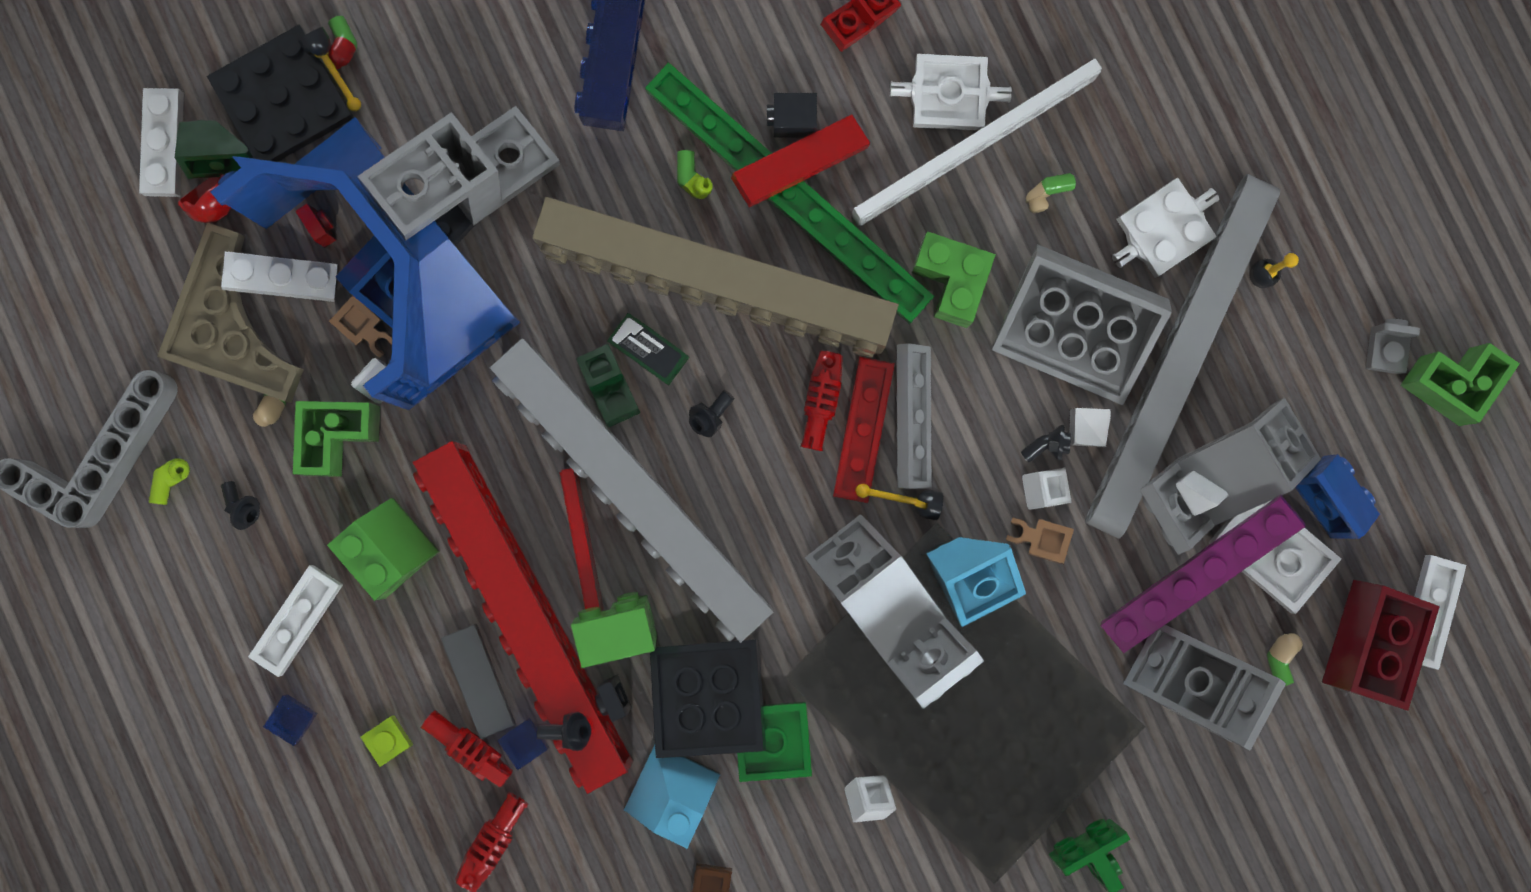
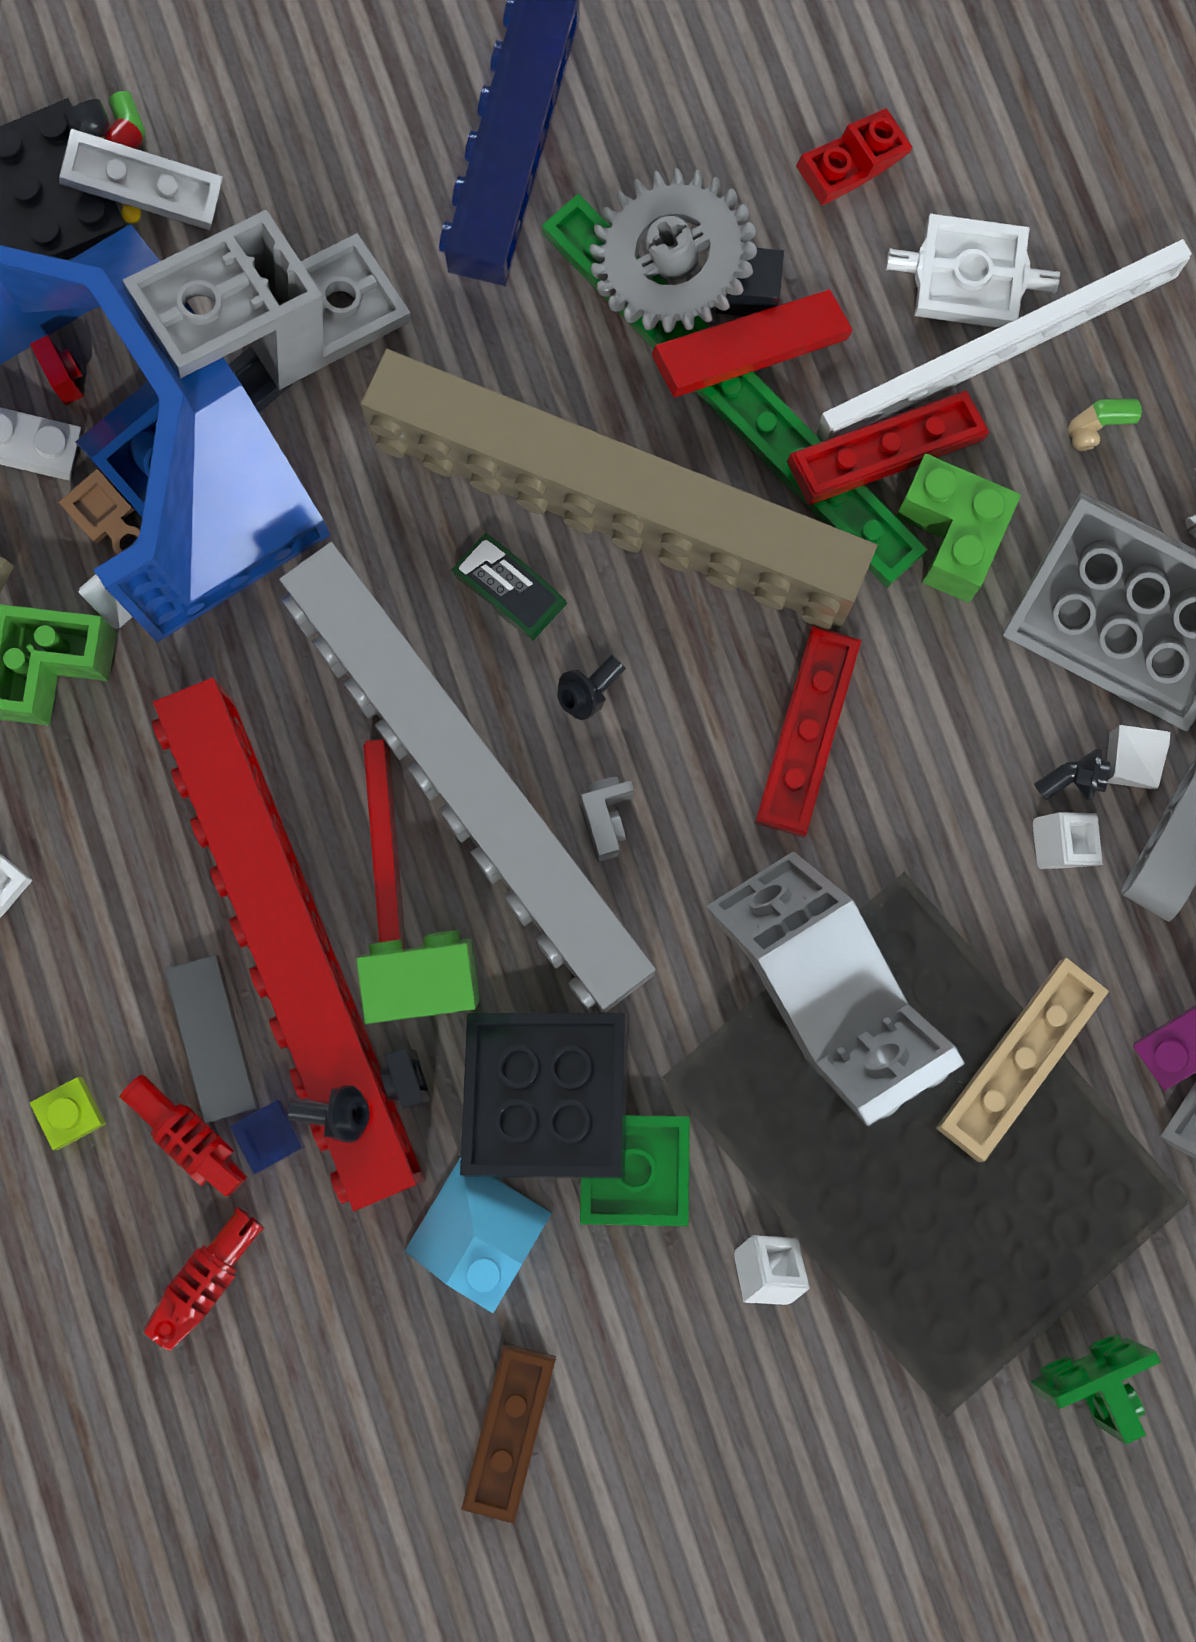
camera: 10 degrees right, 5 degrees down
(358, 82) = (140, 179): none -> white plate
(383, 549) = (96, 832): bright green slope -> none
(608, 385) = (446, 633): dark green slope -> none
(689, 179) = (589, 355): arm -> none
(721, 75) = (662, 219): none -> light grey gear
(730, 510) = (605, 826): none -> light grey bracket
(822, 398) = (752, 679): red hinge -> none
(901, 226) = (887, 447): none -> red tile
(913, 416) = (883, 717): light grey plate -> none
(927, 504) = (892, 844): hinge -> none
(976, 576) = (958, 952): medium azure slope -> none
(1026, 643) = (1022, 1060): none -> tan plate
(1047, 540) = (1063, 915): medium nougat plate -> none

